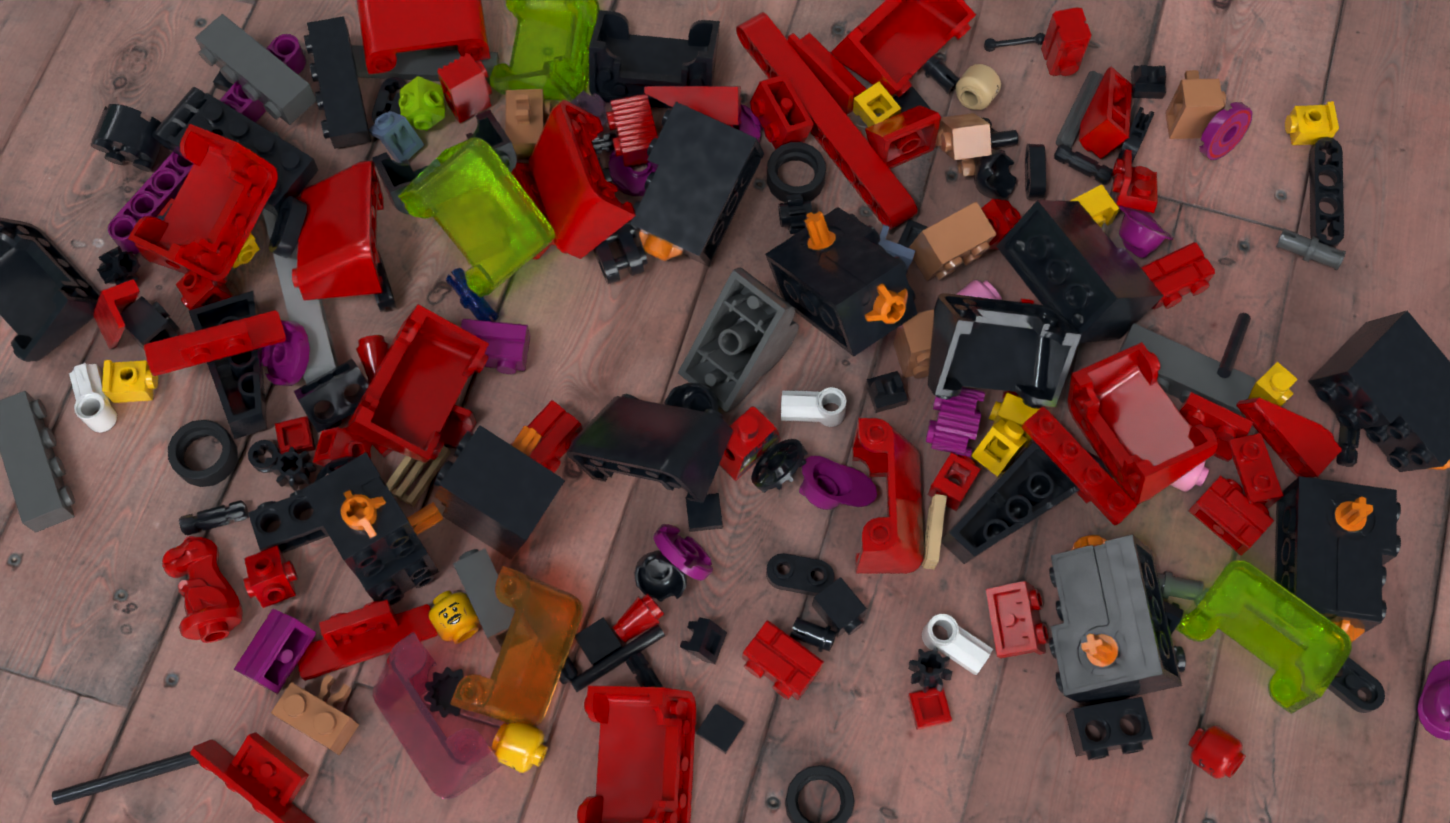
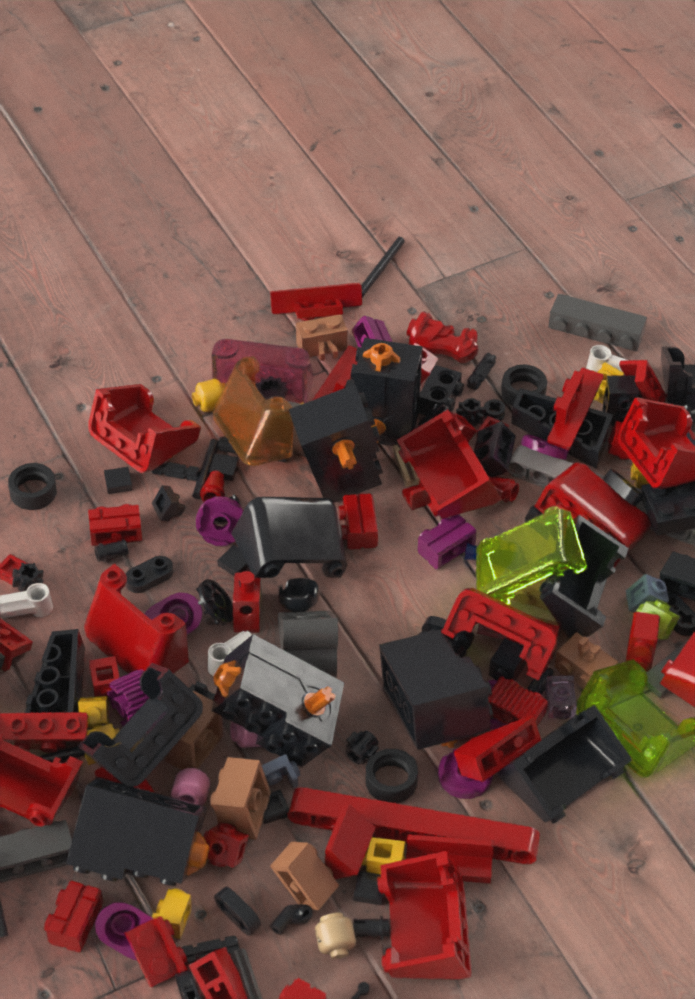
camera: 135 degrees right, 20 degrees down
(780, 111) = (440, 793): red brick -> none
(840, 608) = (102, 561): black brick -> none
(934, 531) = (92, 644): tan tile -> none
(993, 175) = (258, 878): black hair -> none

